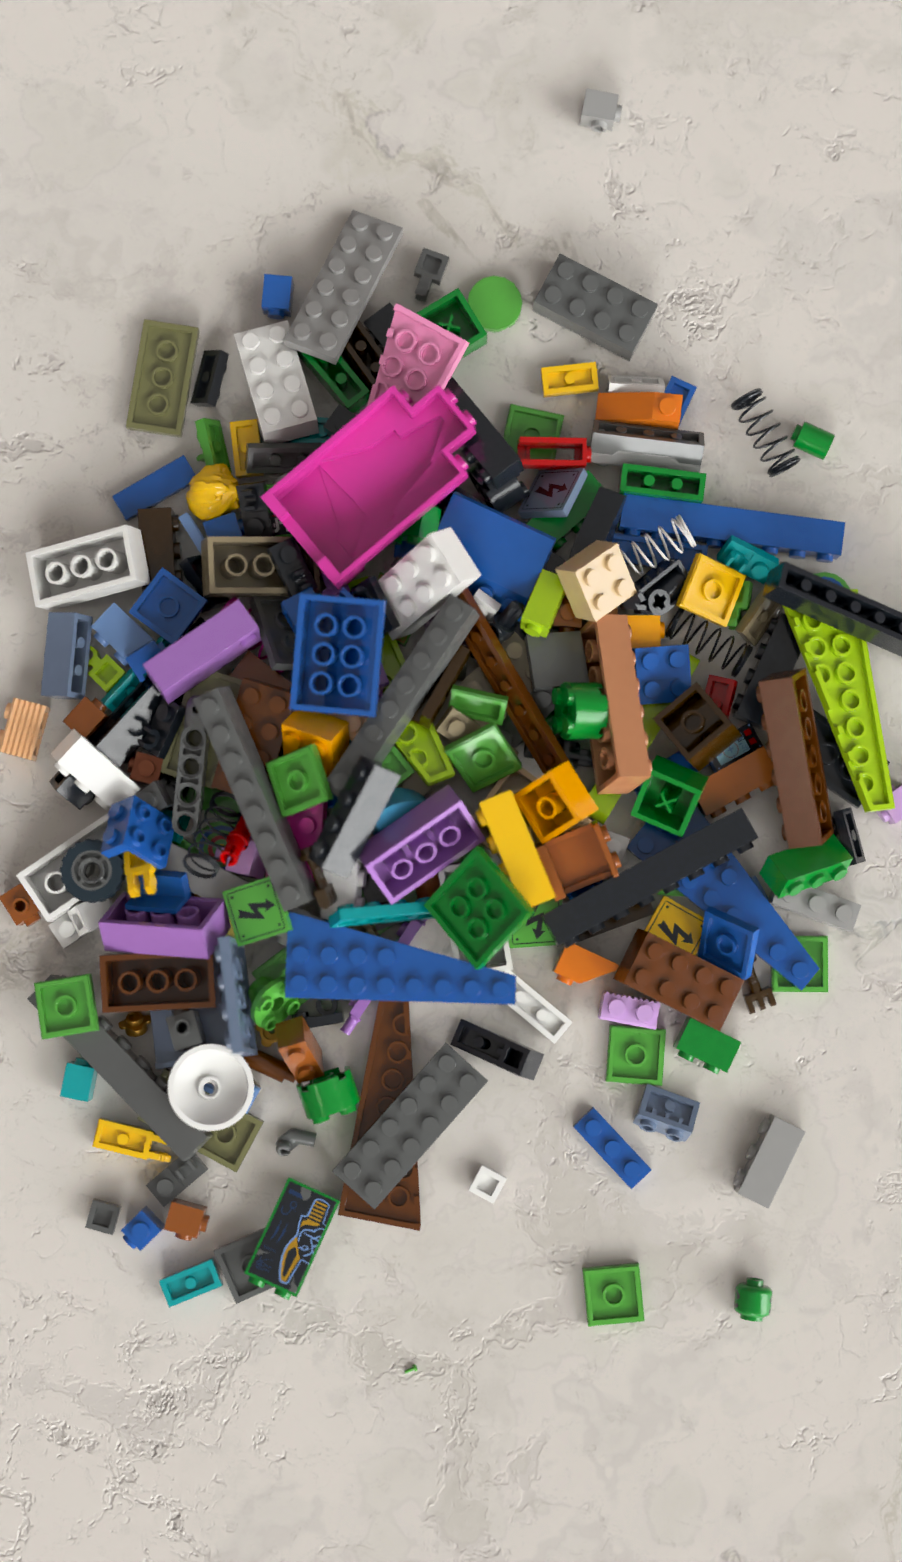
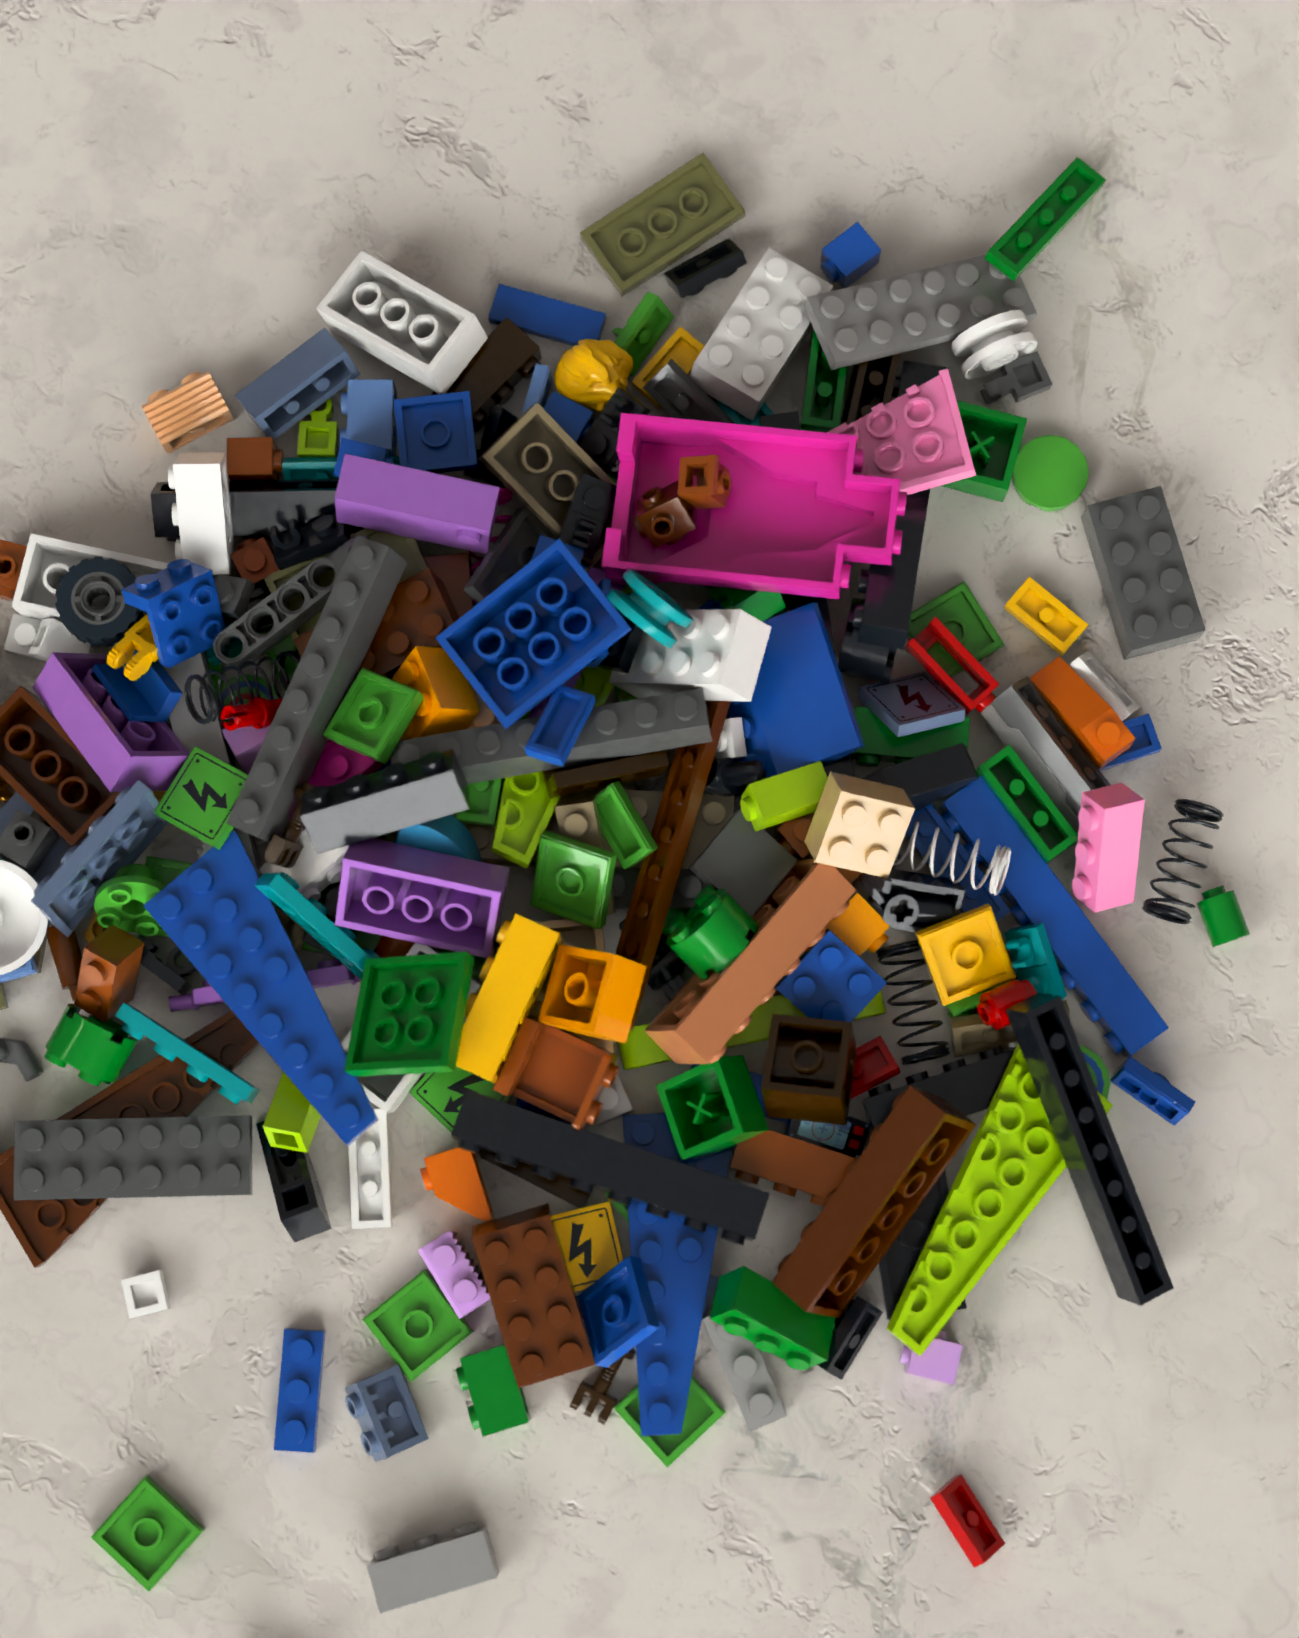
camera: 55 degrees right, 5 degrees down
(334, 526) = (664, 516): none -> reddish brown brick
(341, 485) = (712, 482): none -> dark orange brick
(356, 174) = (1045, 219): none -> green plate
(370, 1051) = (200, 1064): none -> teal plate
(382, 580) = (649, 608): none -> teal wheel
(400, 266) = (993, 344): none -> white wheel
(402, 686) = (560, 725): none -> blue tile
(467, 1021) = (290, 1118): none -> lime brick
(725, 463) = (1108, 847): none -> bright pink brick
(751, 597) = (995, 1001): none -> red brick
(867, 561) = (1152, 1090): none -> blue plate

